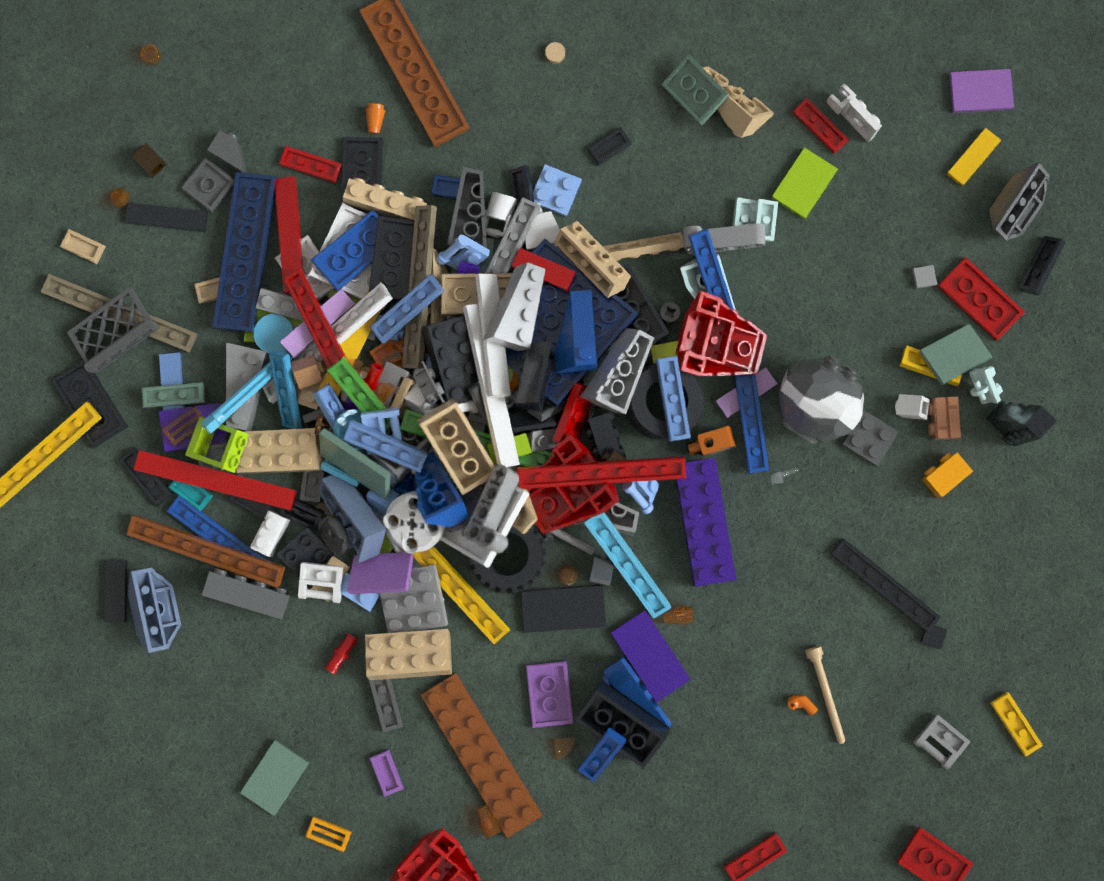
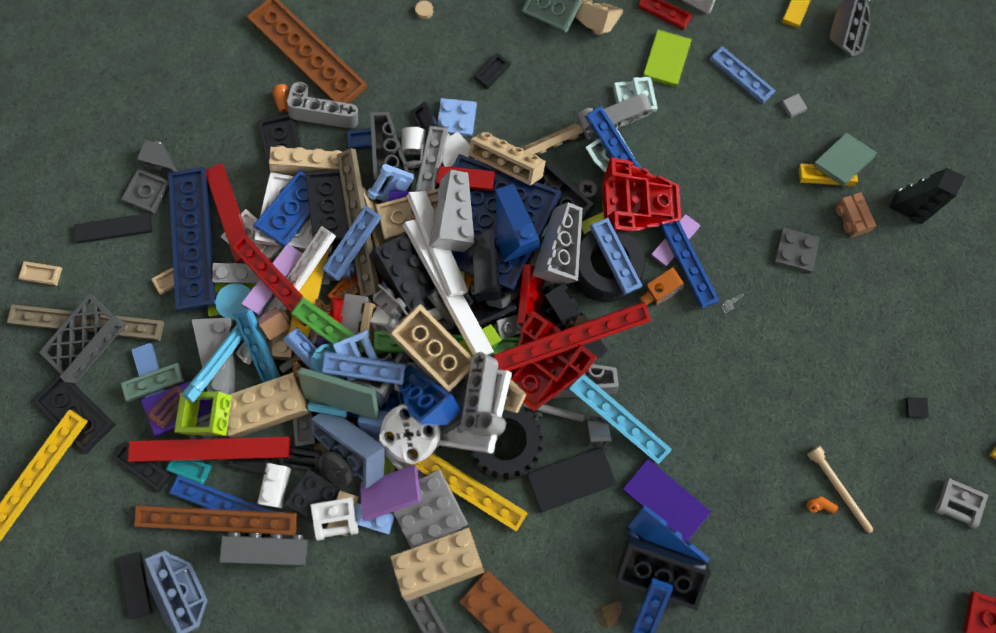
camera: 20 degrees left, 10 degrees down
(119, 197) = (66, 221): clear orange tile -> none
(148, 160) = (86, 183): dark brown brick -> none
(150, 54) = (70, 96): clear orange tile -> none
(310, 164) = (234, 151): red tile -> none
(341, 653) = (371, 583): red pin -> none
(385, 391) = (351, 319): clear orange tile -> none
(415, 142) = (319, 110): none -> light grey beam
(549, 694) = (583, 565): medium lavender tile -> none
(568, 575) = (567, 446): clear orange tile -> none
(643, 493) = (614, 348): light blue plate -> none
(681, 615) = (681, 454): clear orange cone -> none
(705, 524) = (678, 364): dark purple brick -> none
(820, 399) = (746, 222): dark grey rock -> none
(880, 225) = (742, 75): none -> medium blue tile
(885, 585) = (858, 374): black tile -> none
(912, 406) = (824, 212): white brick -> none
(947, 474) = (876, 261): light orange brick -> none
(980, 299) = (848, 111): red tile -> none
(985, 386) = (880, 177): light aqua hips -> none
(1042, 265) = (888, 70): black plate -> none

